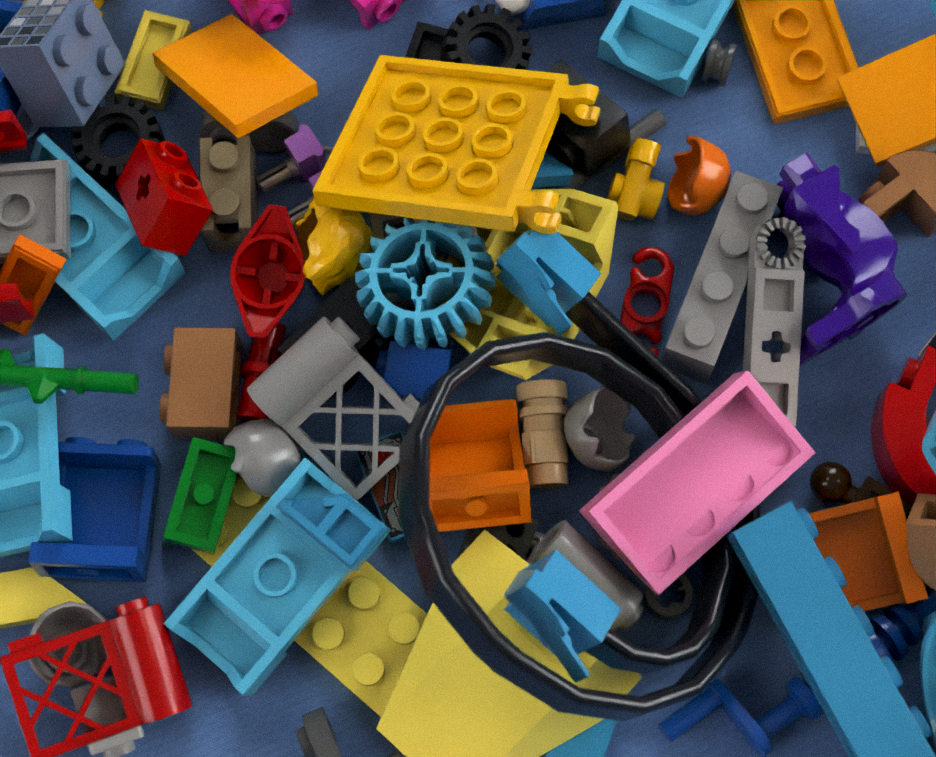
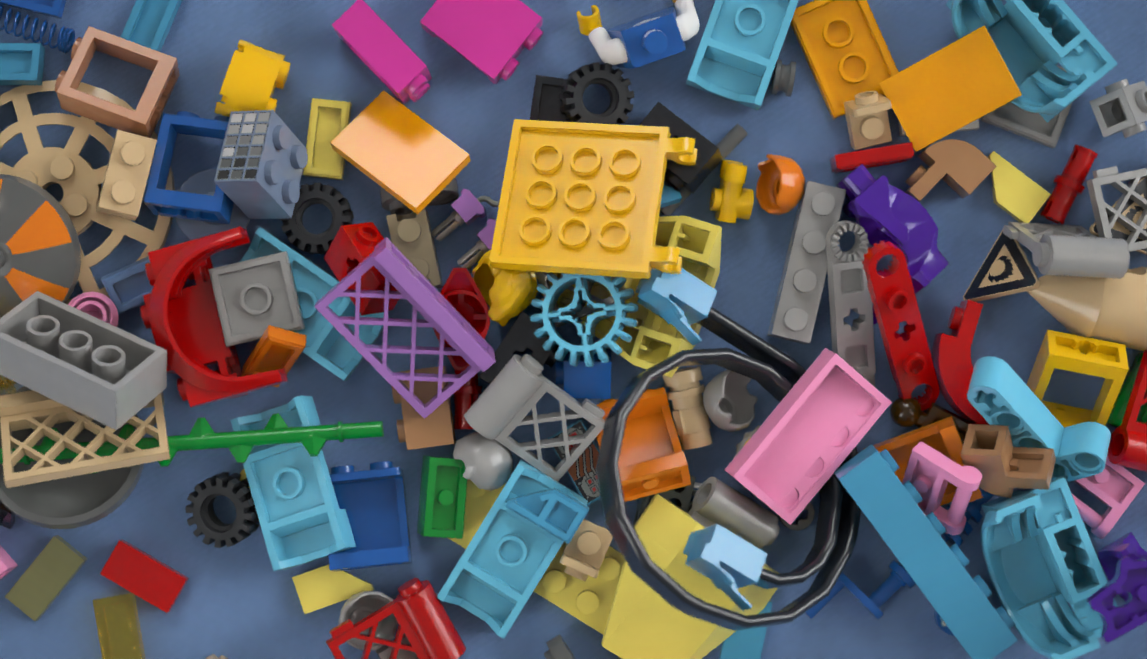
camera: 15 degrees left, 15 degrees up
(227, 235) = (430, 304): none -> medium lavender fence
(377, 592) = (586, 550): none -> tan bracket
(657, 286) = (761, 275): red piece -> none
(819, 120) = (868, 119): none -> tan bracket
(831, 322) = (894, 303): none -> red piece
(852, 162) = (872, 157): none -> red tile
(860, 550) = (930, 474): none -> bright pink plate

